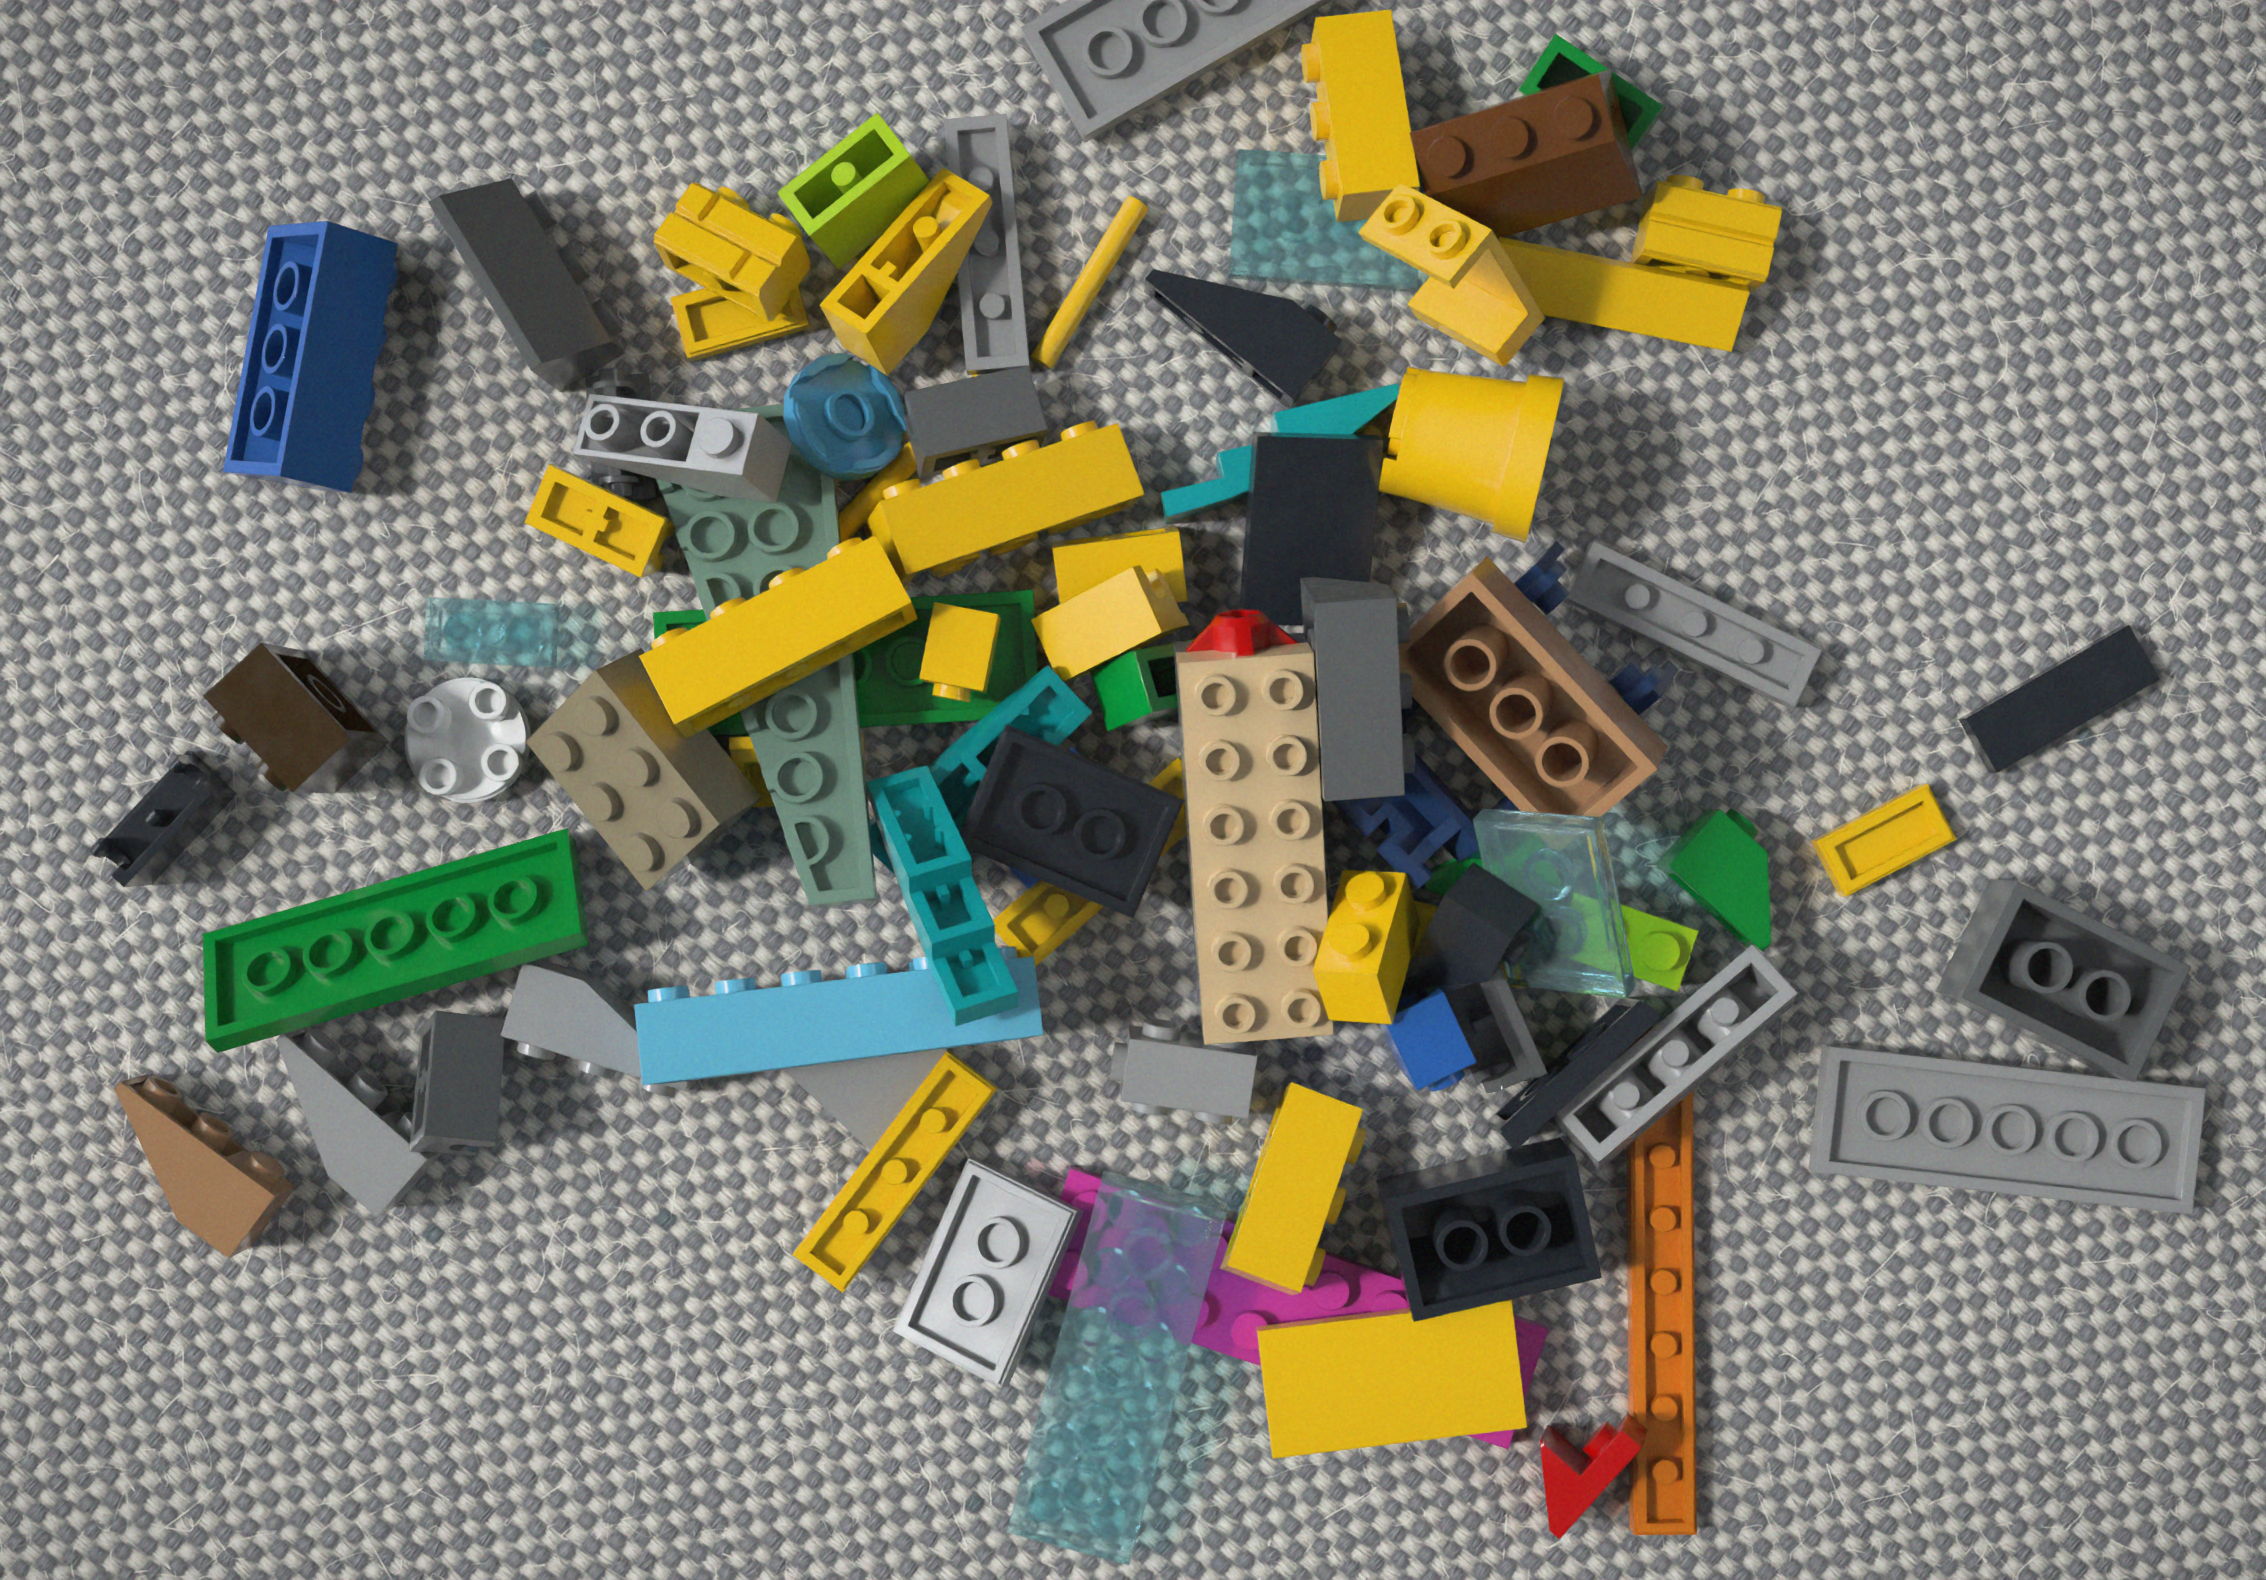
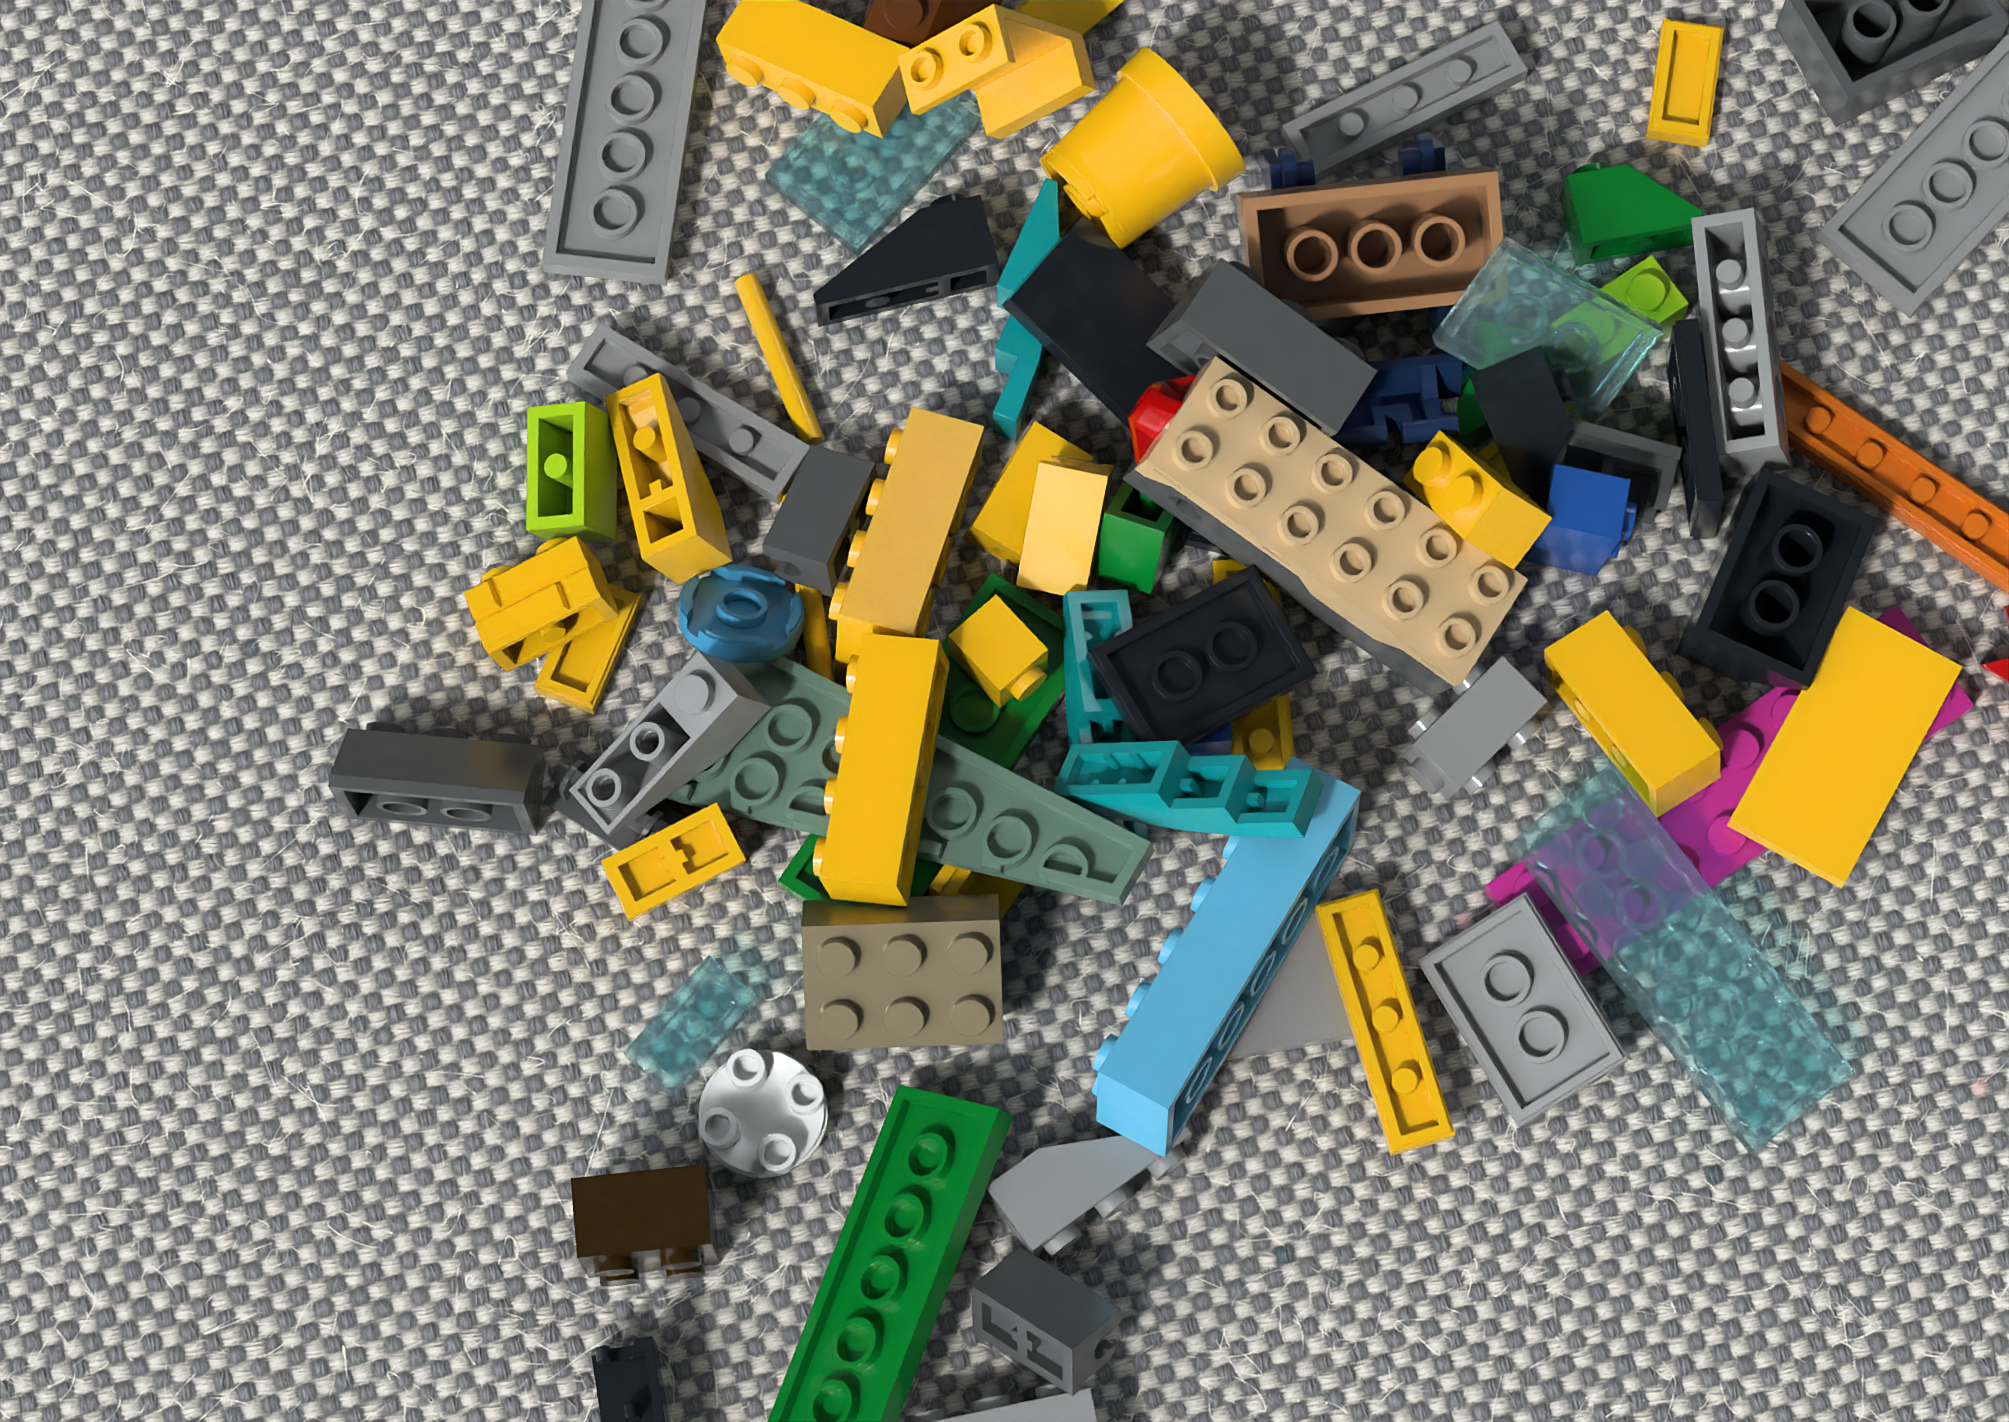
camera: 50 degrees left, 15 degrees down
(311, 356) = (353, 1005): blue slope -> none

